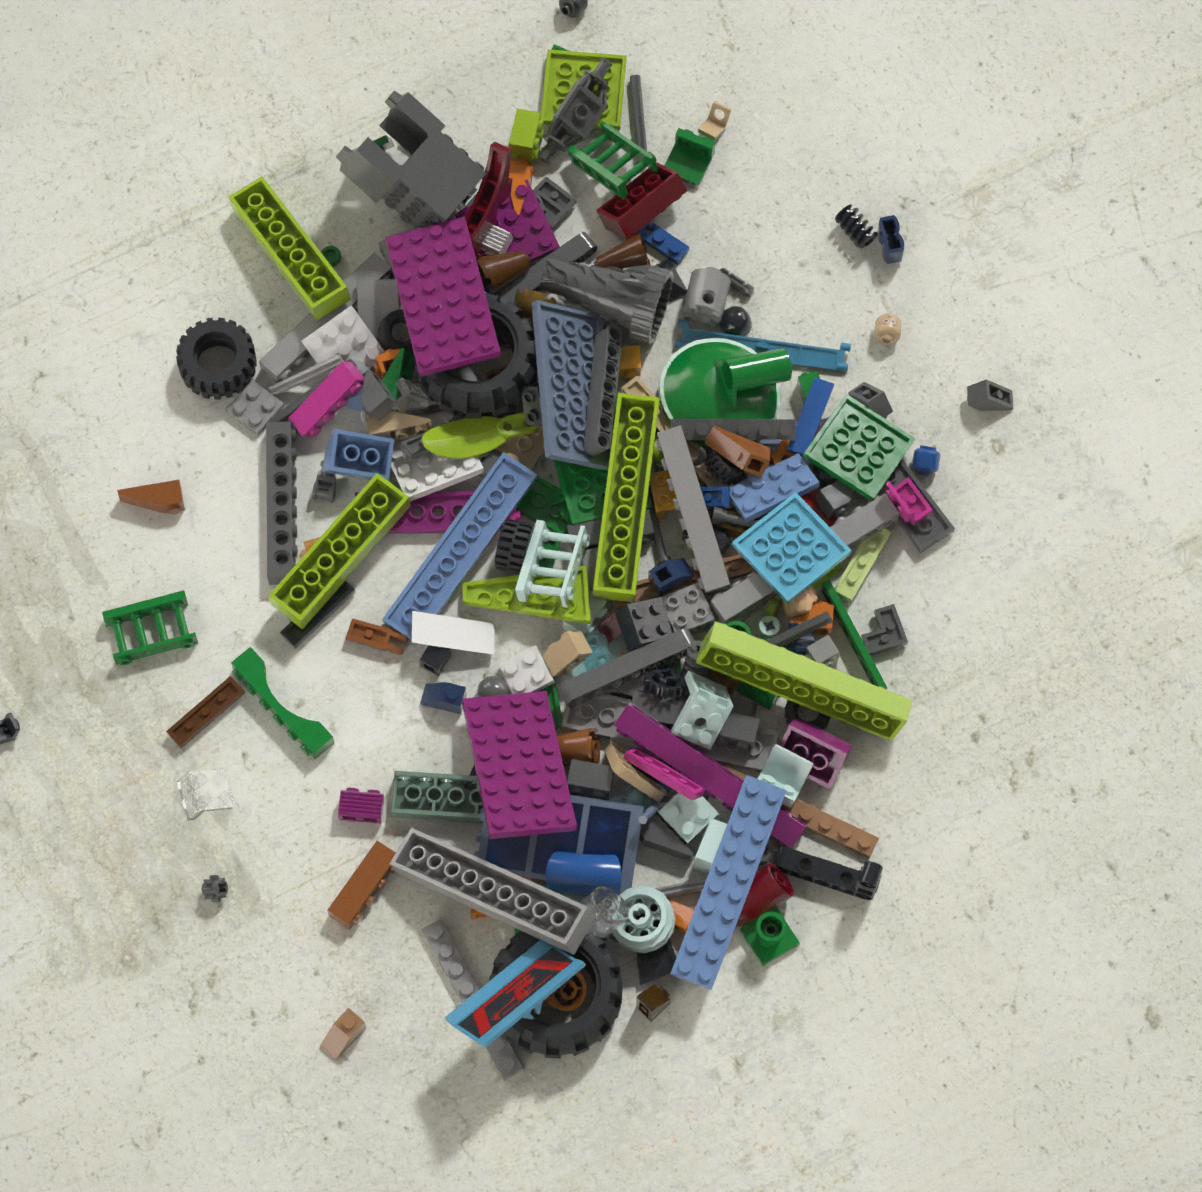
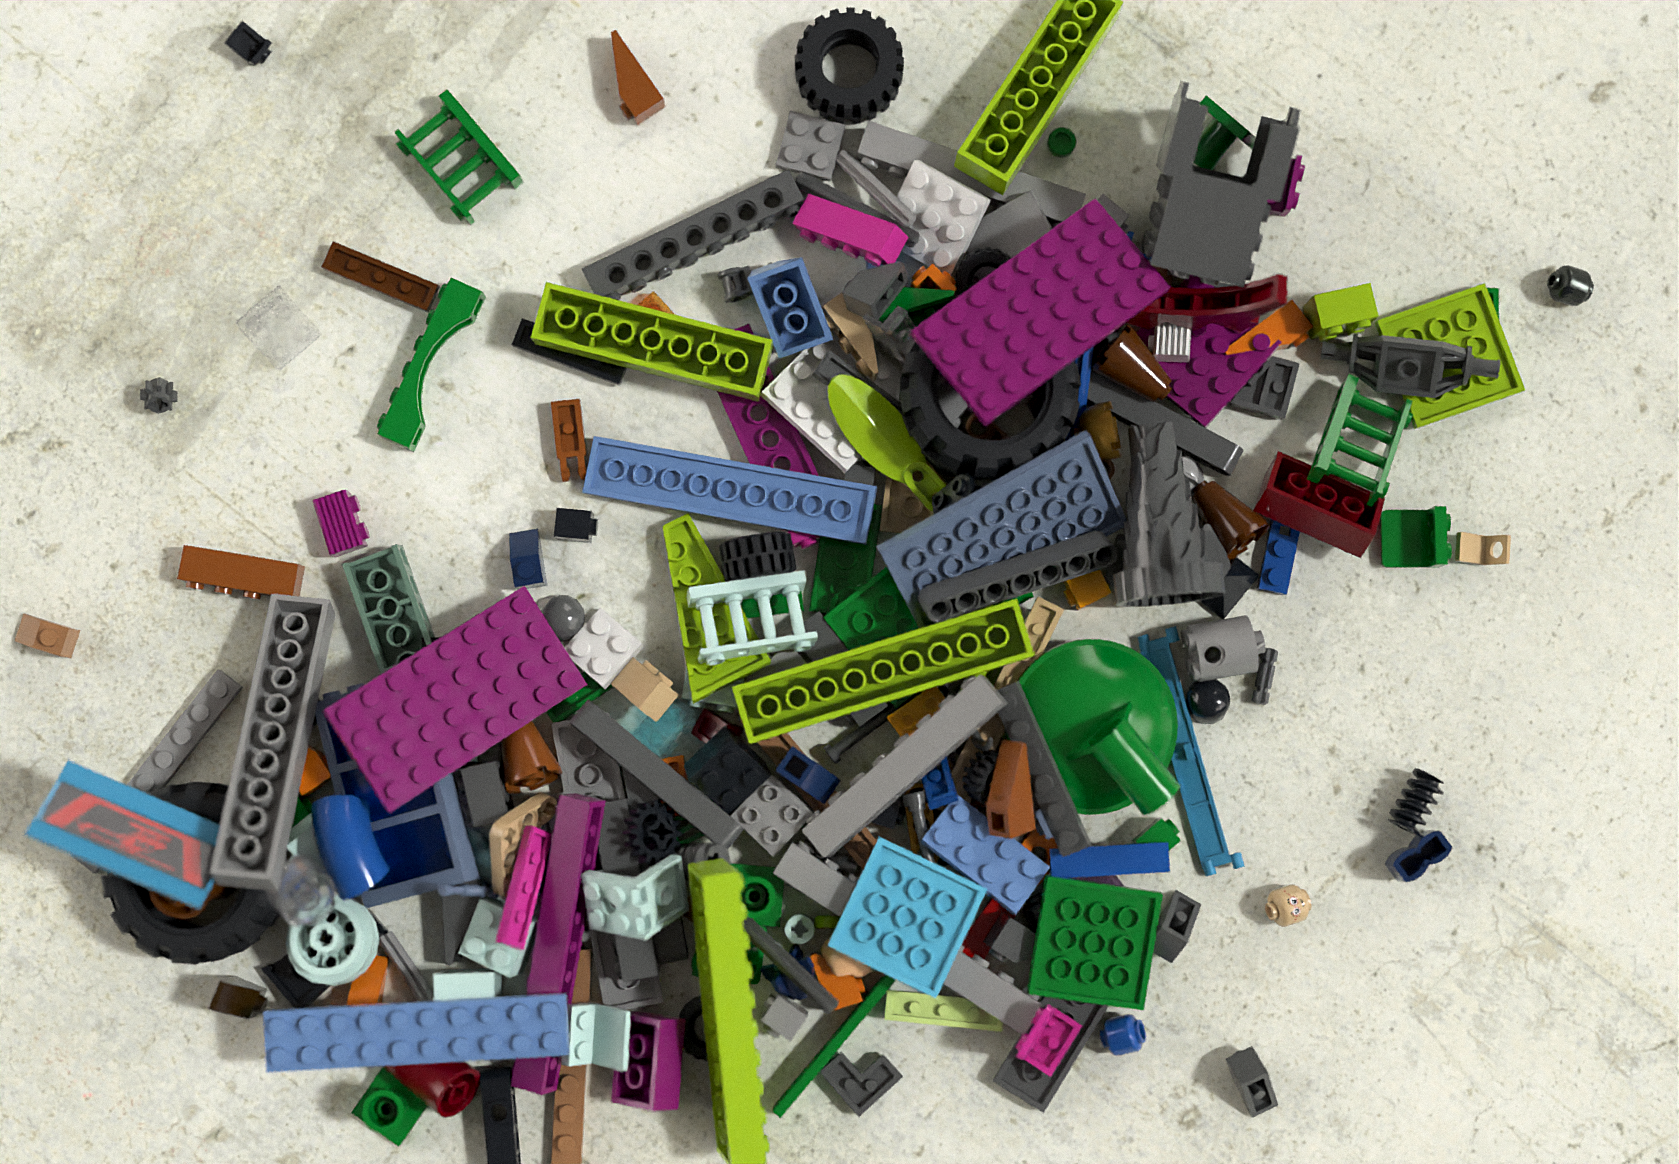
camera: 65 degrees right, 15 degrees up
(452, 632) = (612, 532): white sticker -> none
(638, 112) = (1445, 444): dark grey axle -> none

